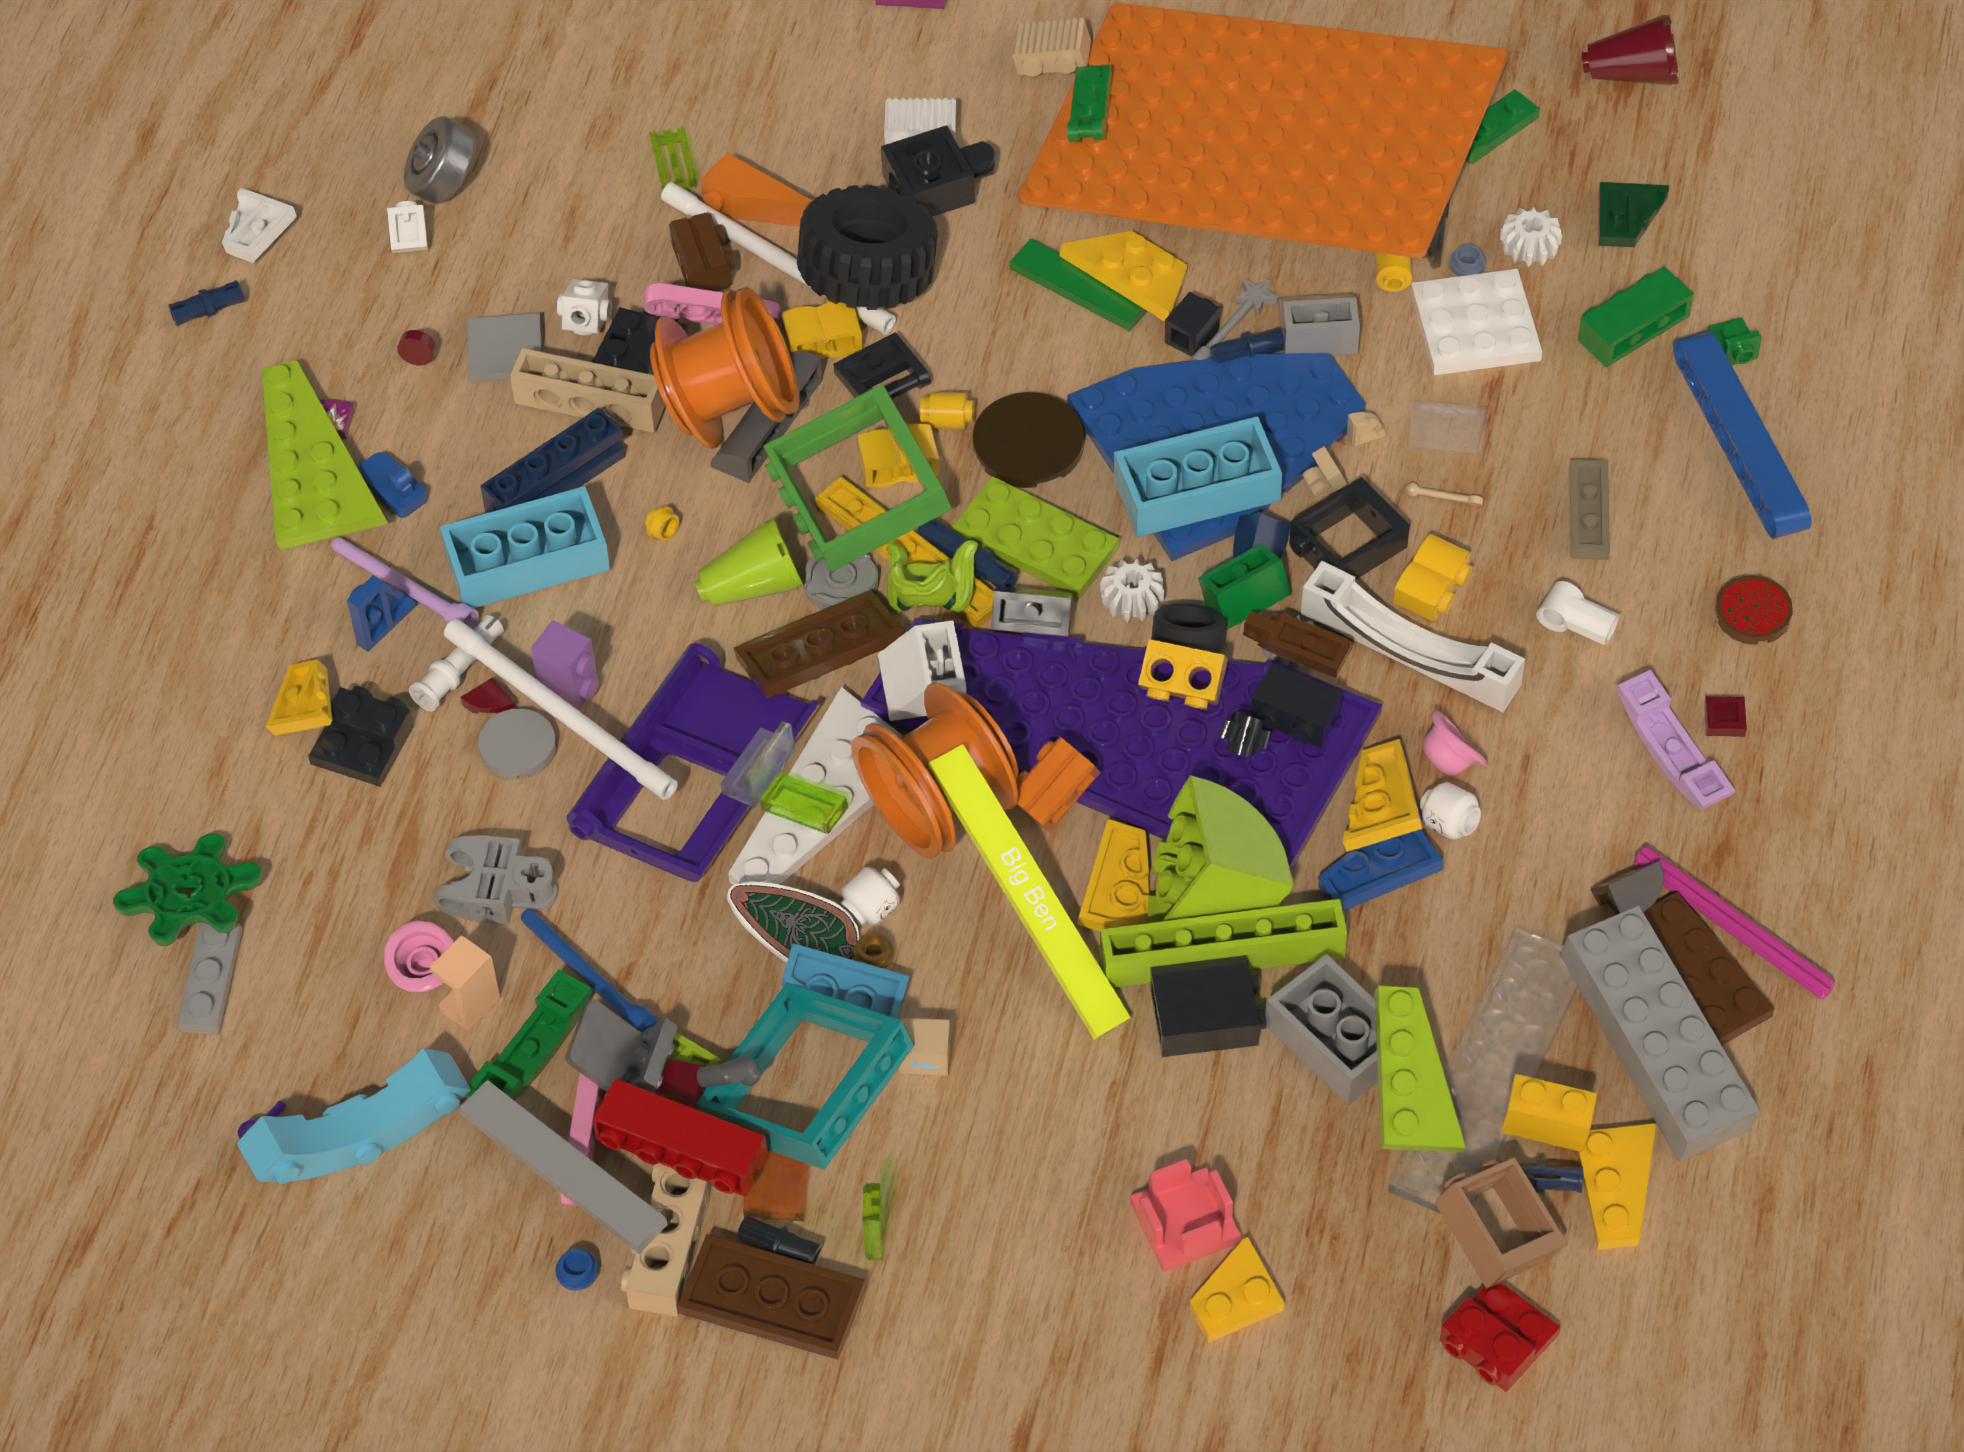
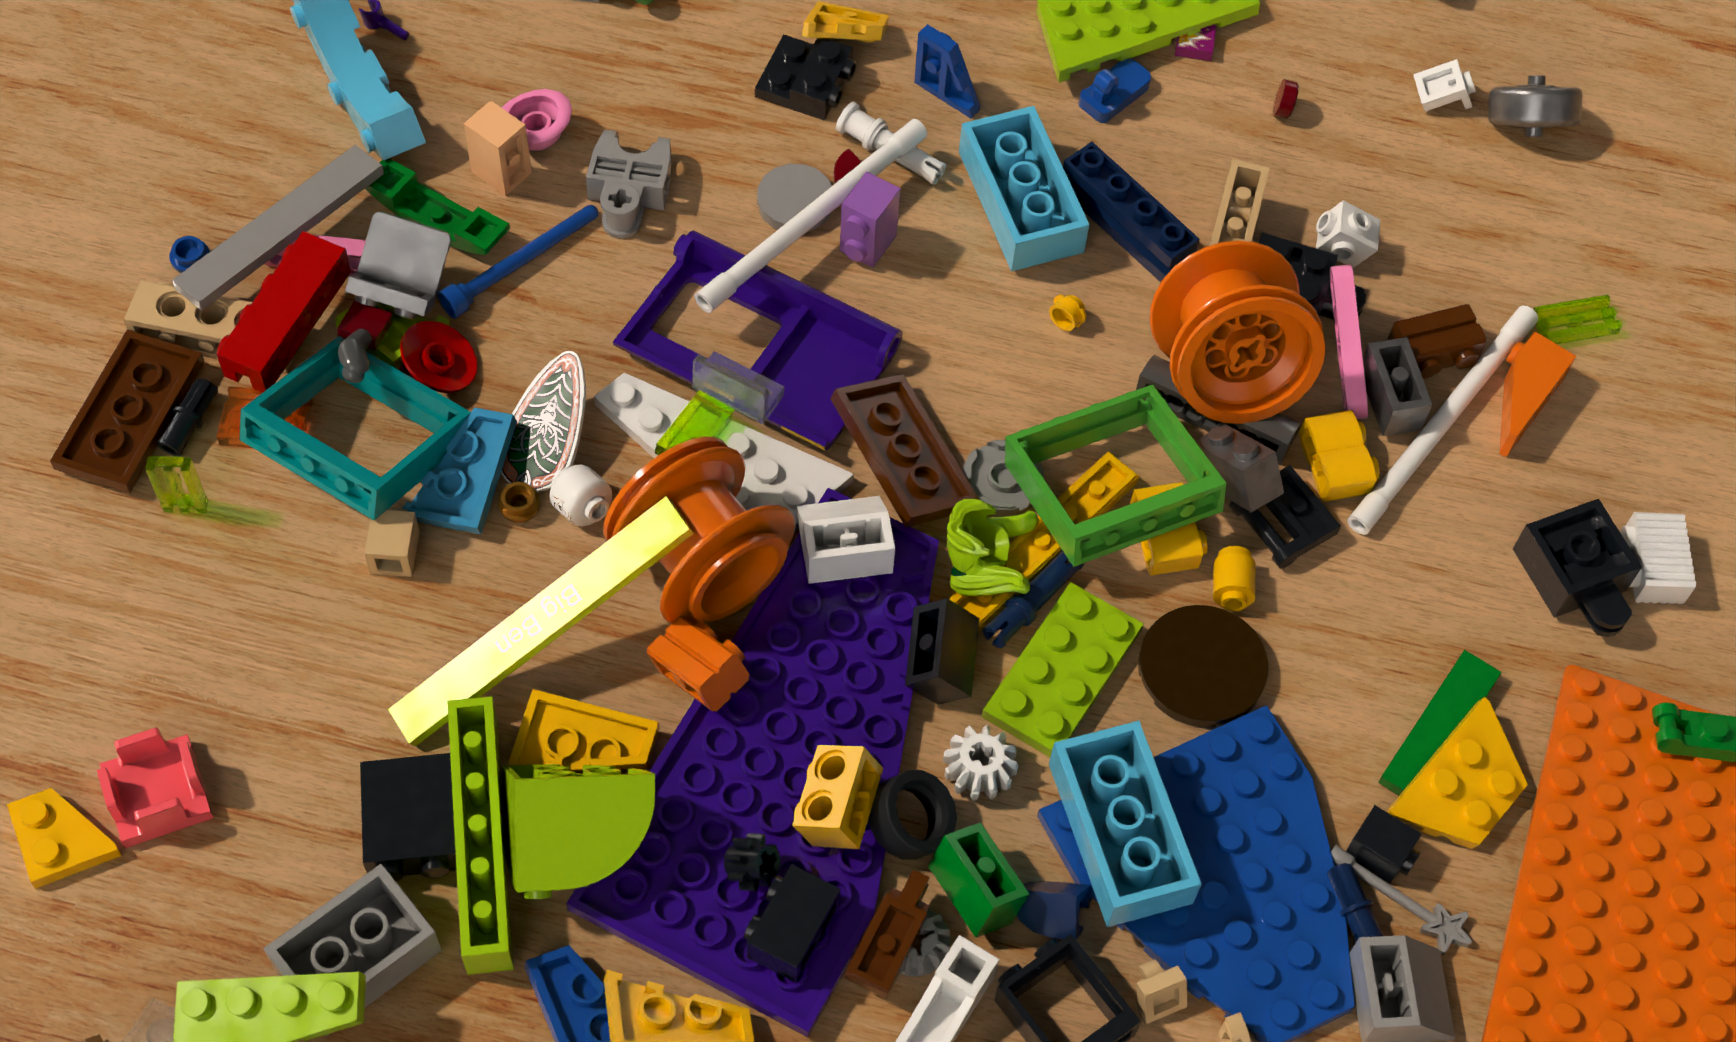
camera: 85 degrees right, 5 degrees up
(407, 586) = (945, 144): lavender piece -> none
(496, 344) = (1299, 176): light grey tile -> none
(714, 1024) = (438, 356): none -> red dish
(750, 569) = (1003, 389): lime cone -> none
(763, 272) = (1395, 387): none -> flat silver brick
(843, 382) = (1245, 466): none -> flat silver brick
(867, 247) = (1478, 458): black tyre -> none

